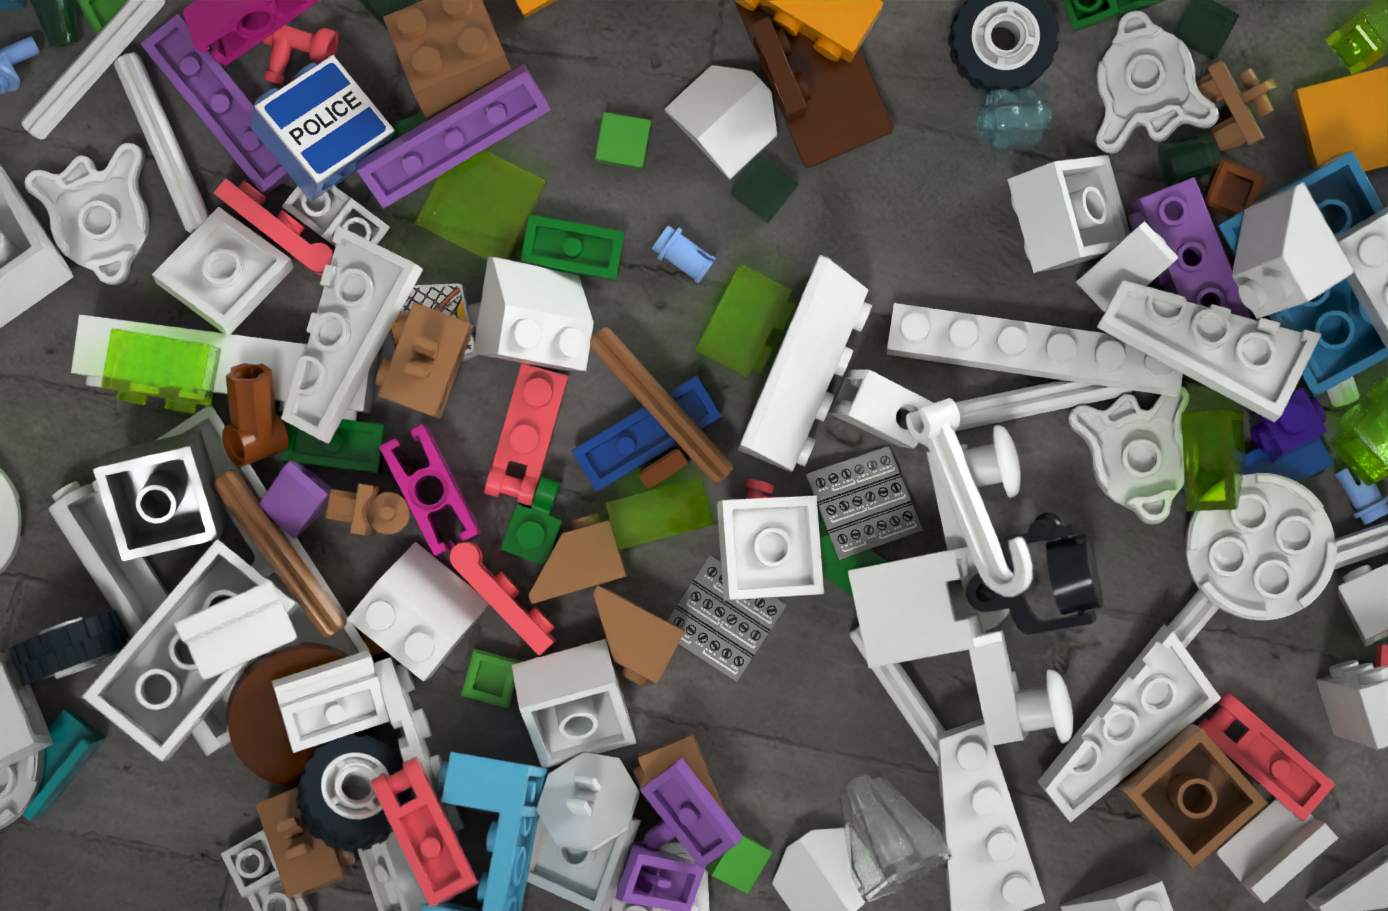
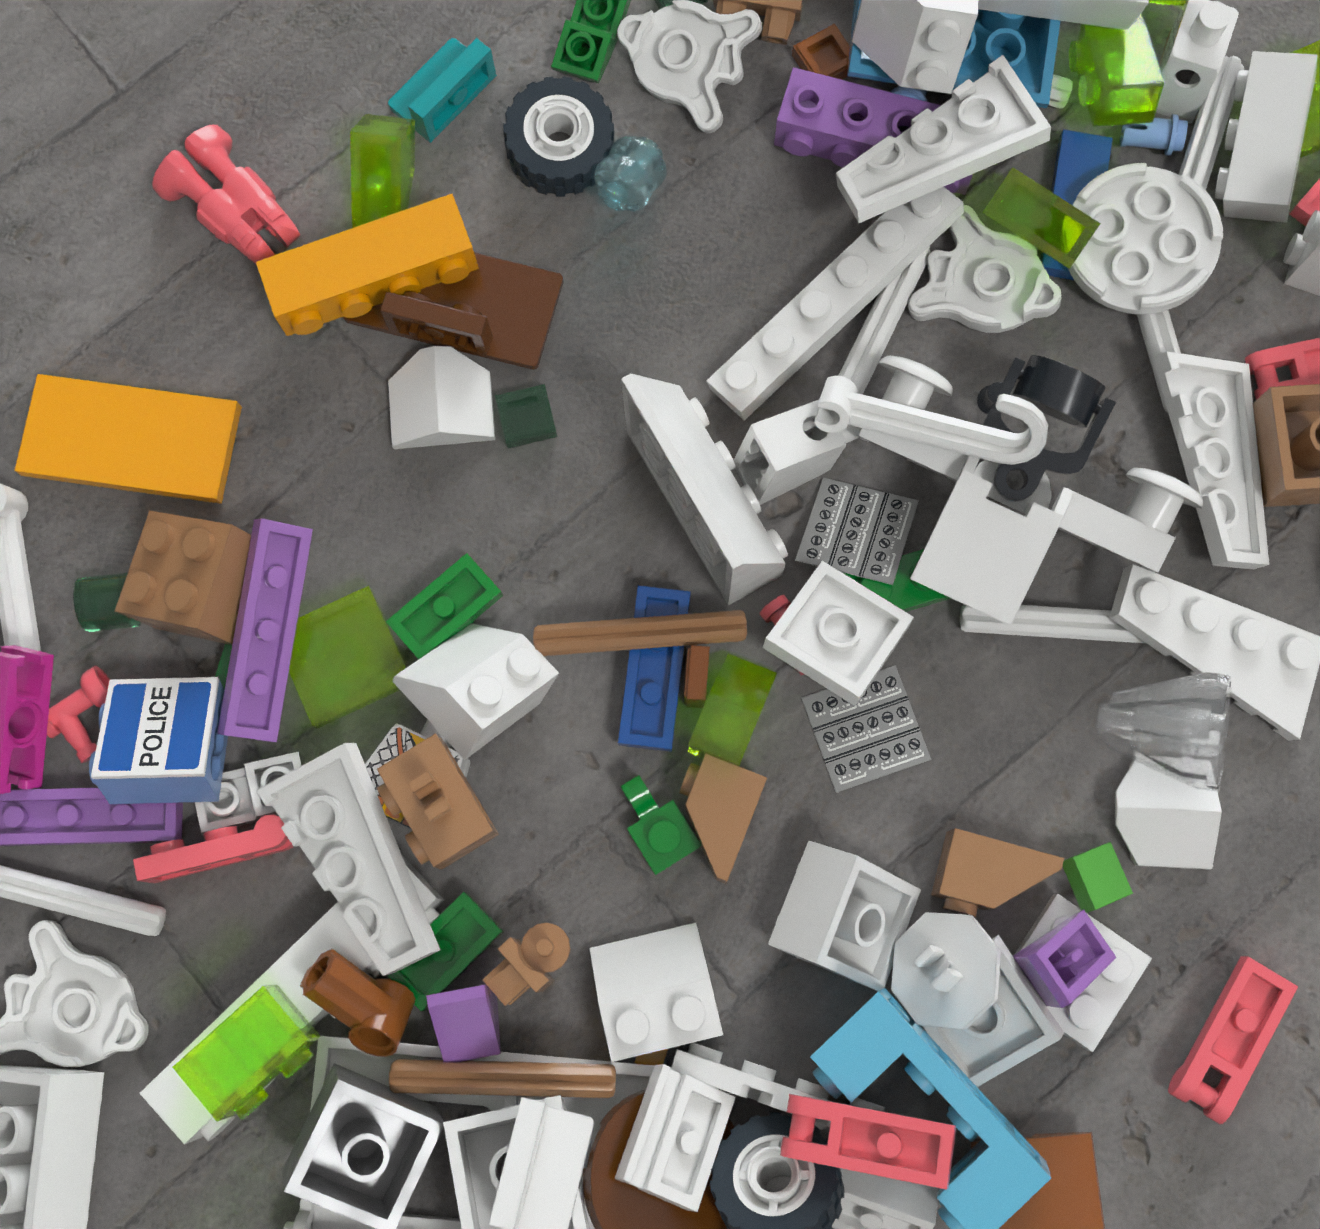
camera: 50 degrees left, 10 degrees down
(223, 271) = (212, 929): white plate -> none
(410, 487) = (543, 874): dark pink piece -> none
(490, 678) = (764, 975): bright green tile -> none
(501, 594) = (697, 904): coral plate -> none
(527, 432) = (571, 772): coral plate -> none
(623, 141) = (390, 499): bright green tile -> none
(636, 636) = (827, 812): medium nougat slope -> none
(683, 253) = (525, 520): light blue pin -> none
(688, 814) = (1028, 882): medium lavender plate -> none
(744, 322) = (625, 512): clear neon green brick -> none
(1068, 212) = (742, 189): white slope -> none
(1134, 259) = (824, 150): white slope -> none
(1188, 158) = (772, 68): clear green brick -> none
(1295, 429) = (1059, 157): dark purple brick -> none

